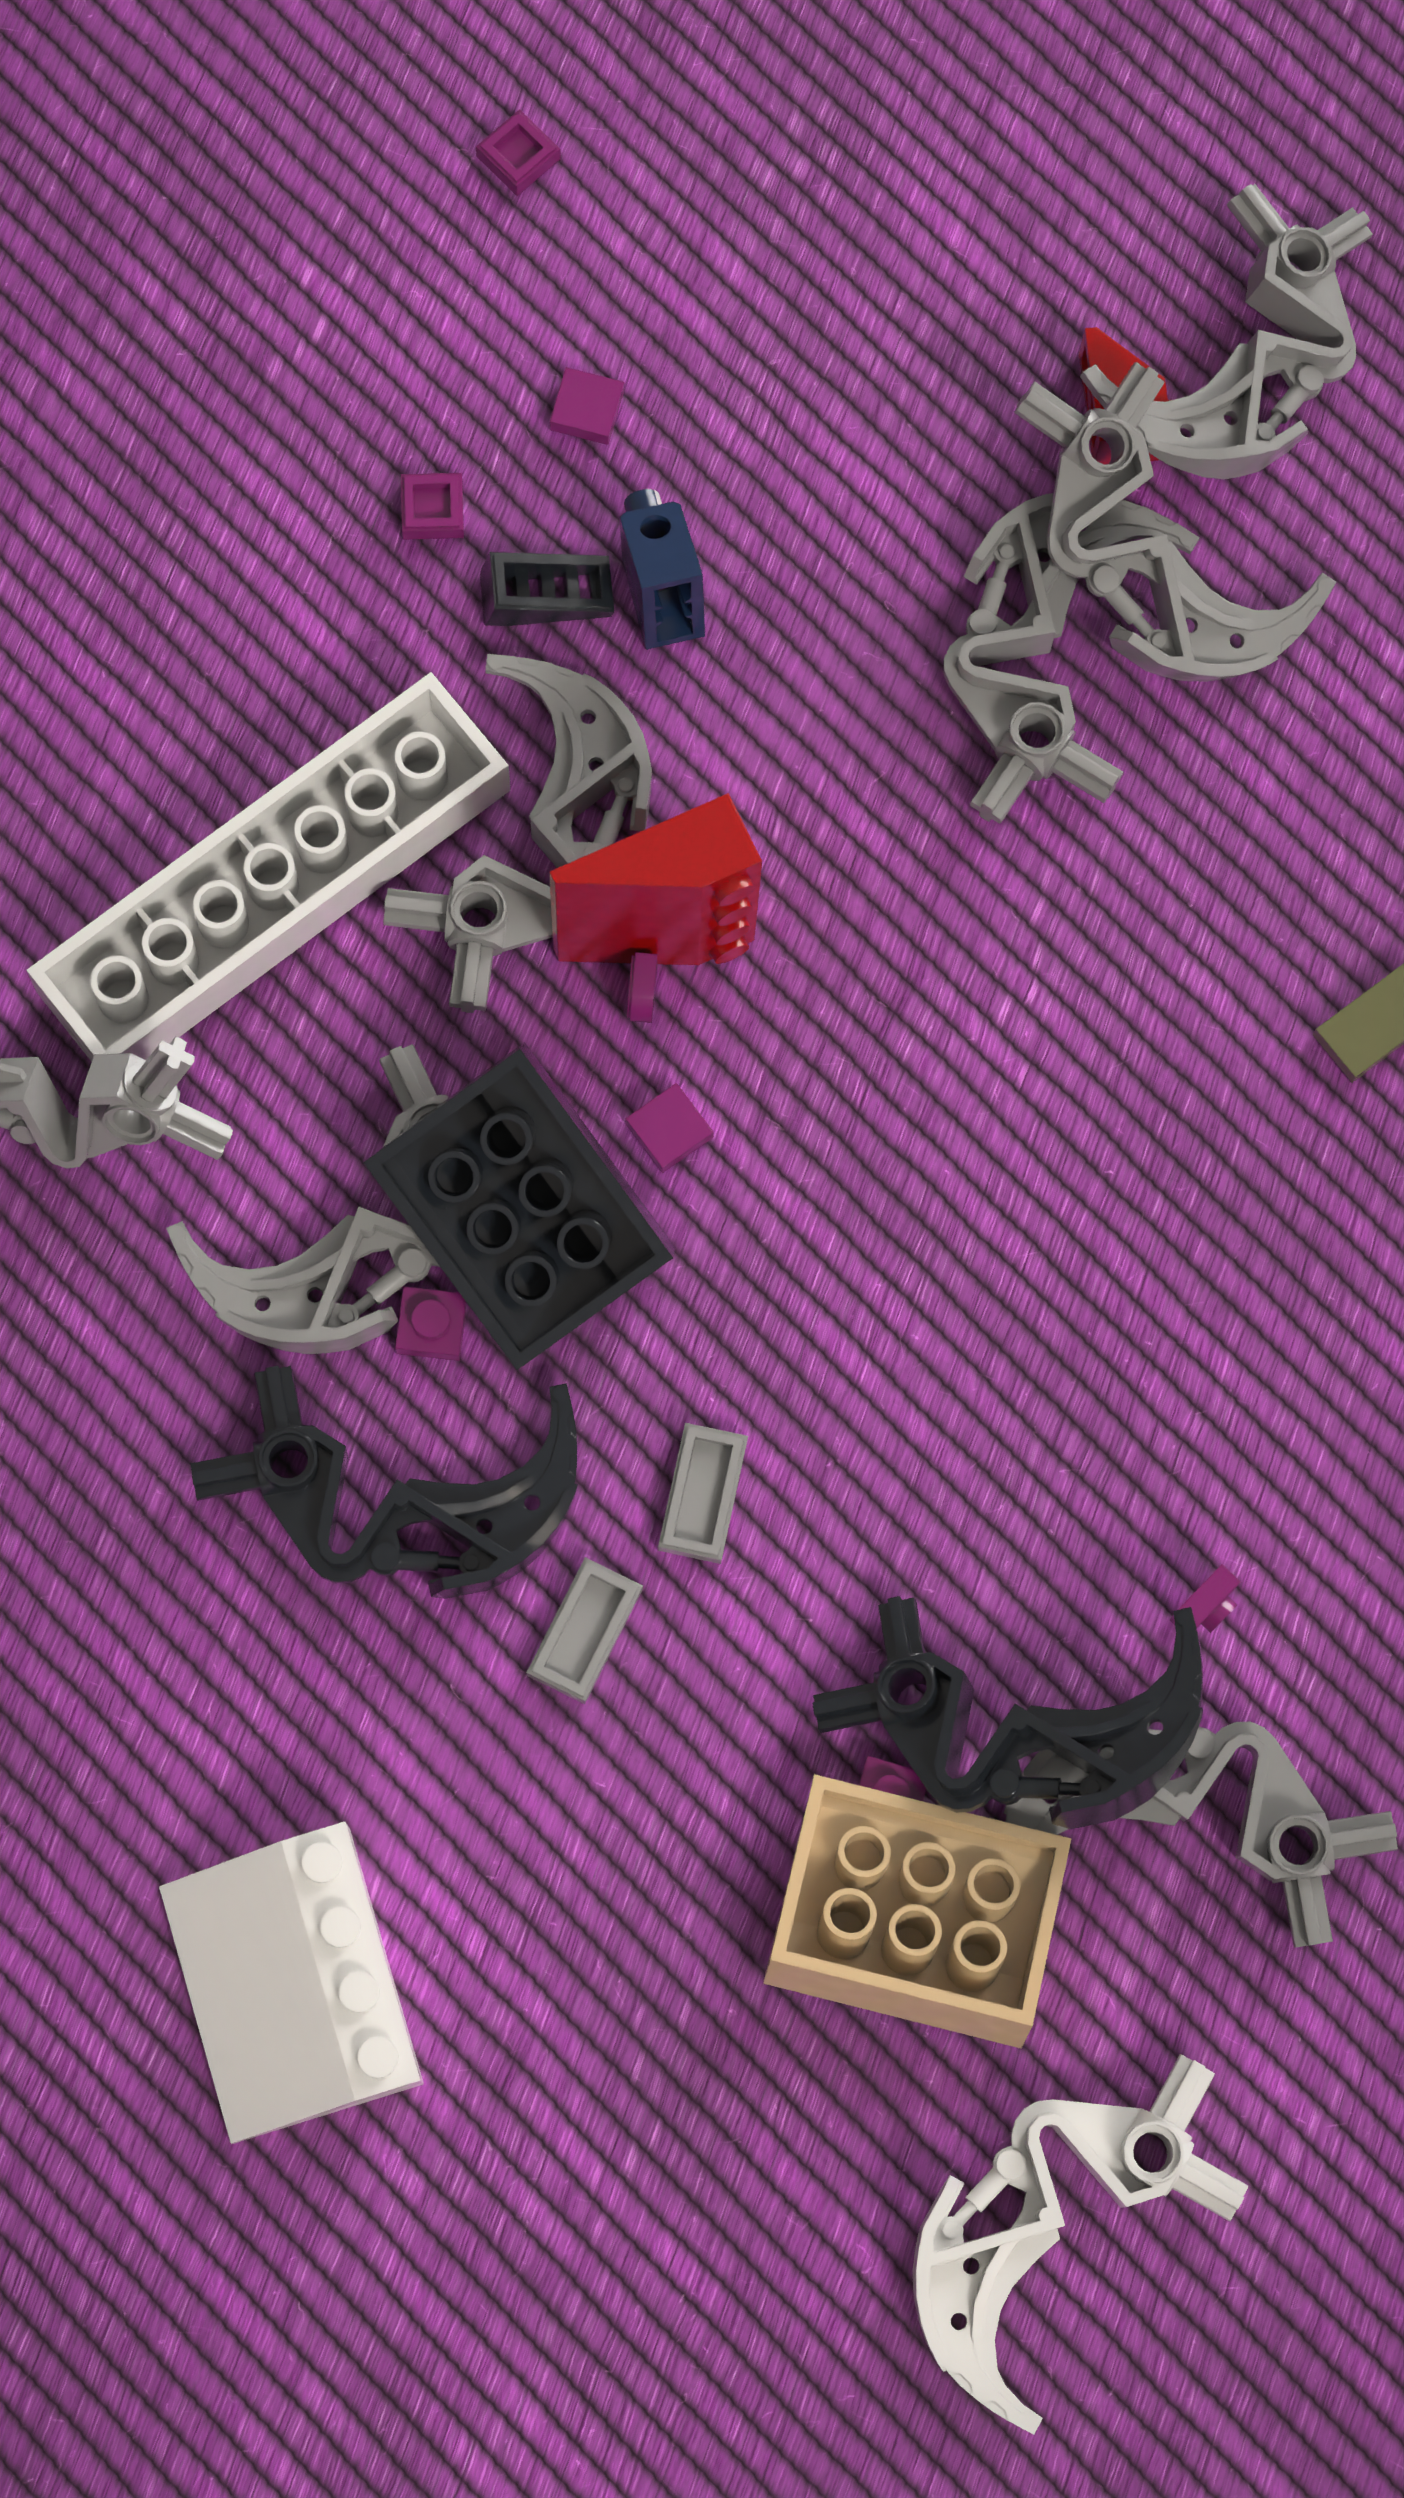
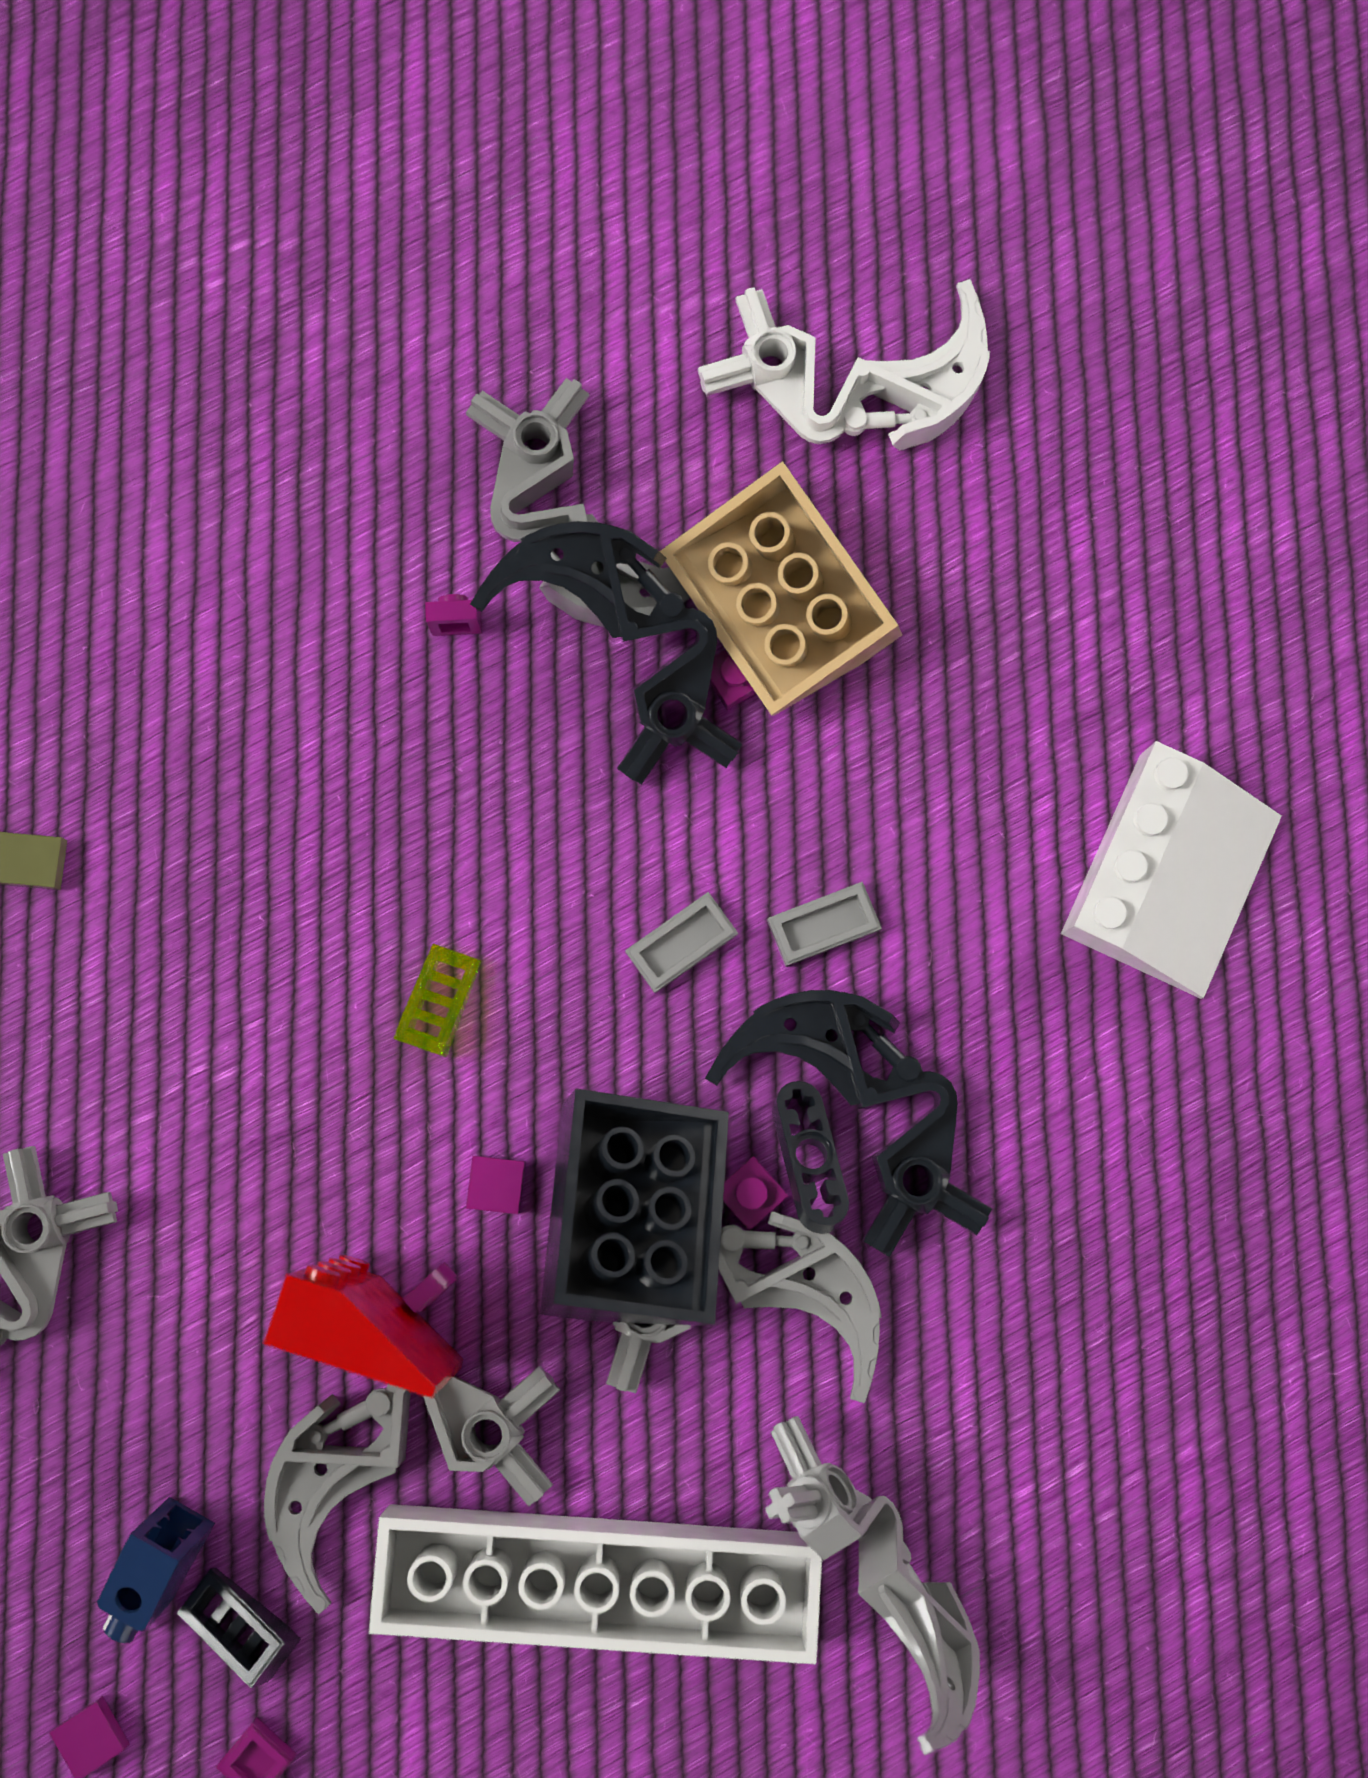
camera: 135 degrees left, 5 degrees up
(434, 1438) = (833, 1189): none -> black beam
(853, 1187) = (412, 1012): none -> clear neon green slope

